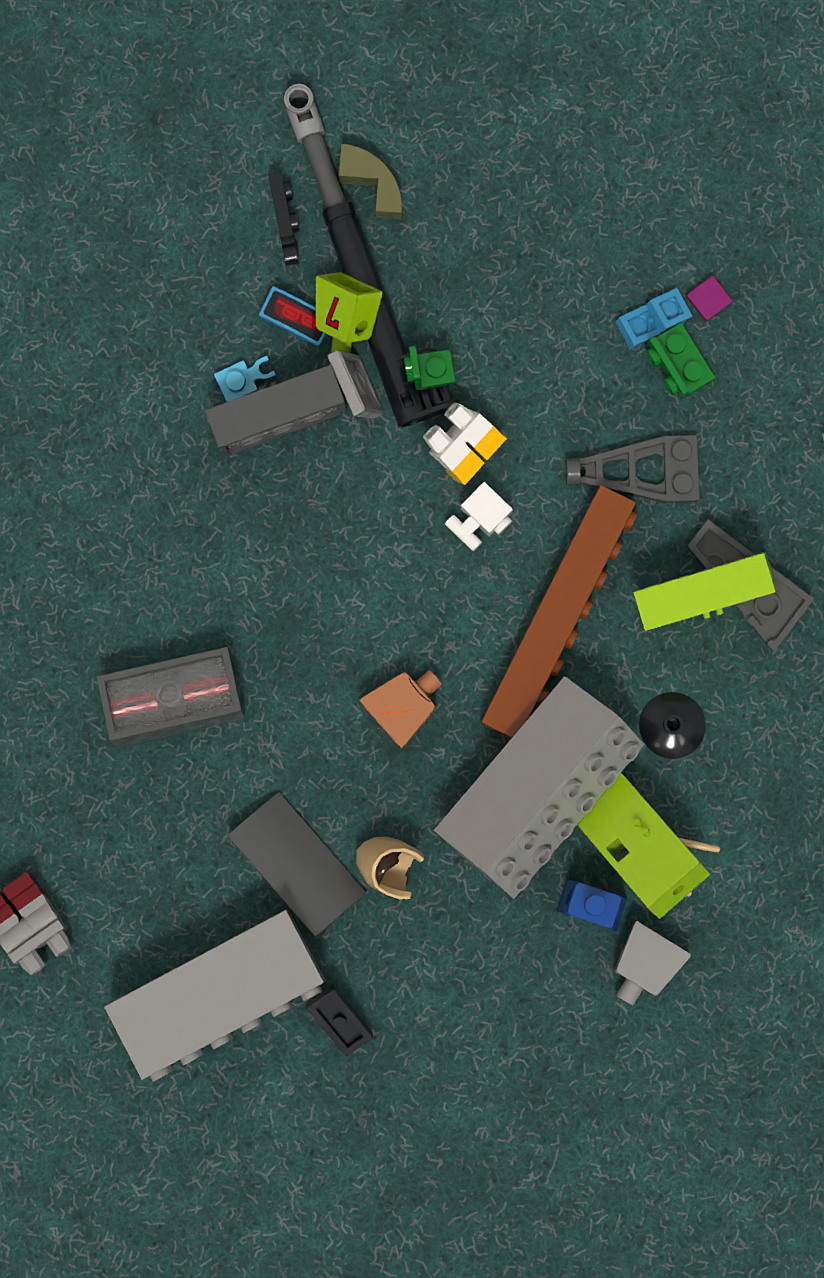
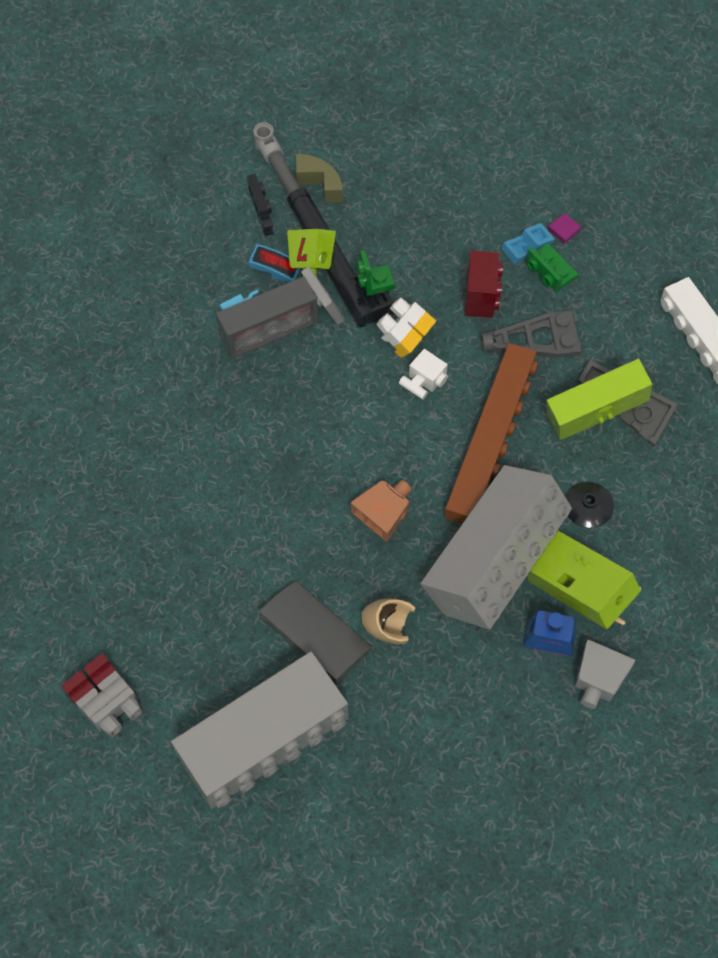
camera: 10 degrees left, 20 degrees down
(170, 697) = (206, 517): clear brick -> none
(339, 1020) = (363, 743): black plate -> none
(577, 389) = (483, 284): none -> dark red brick

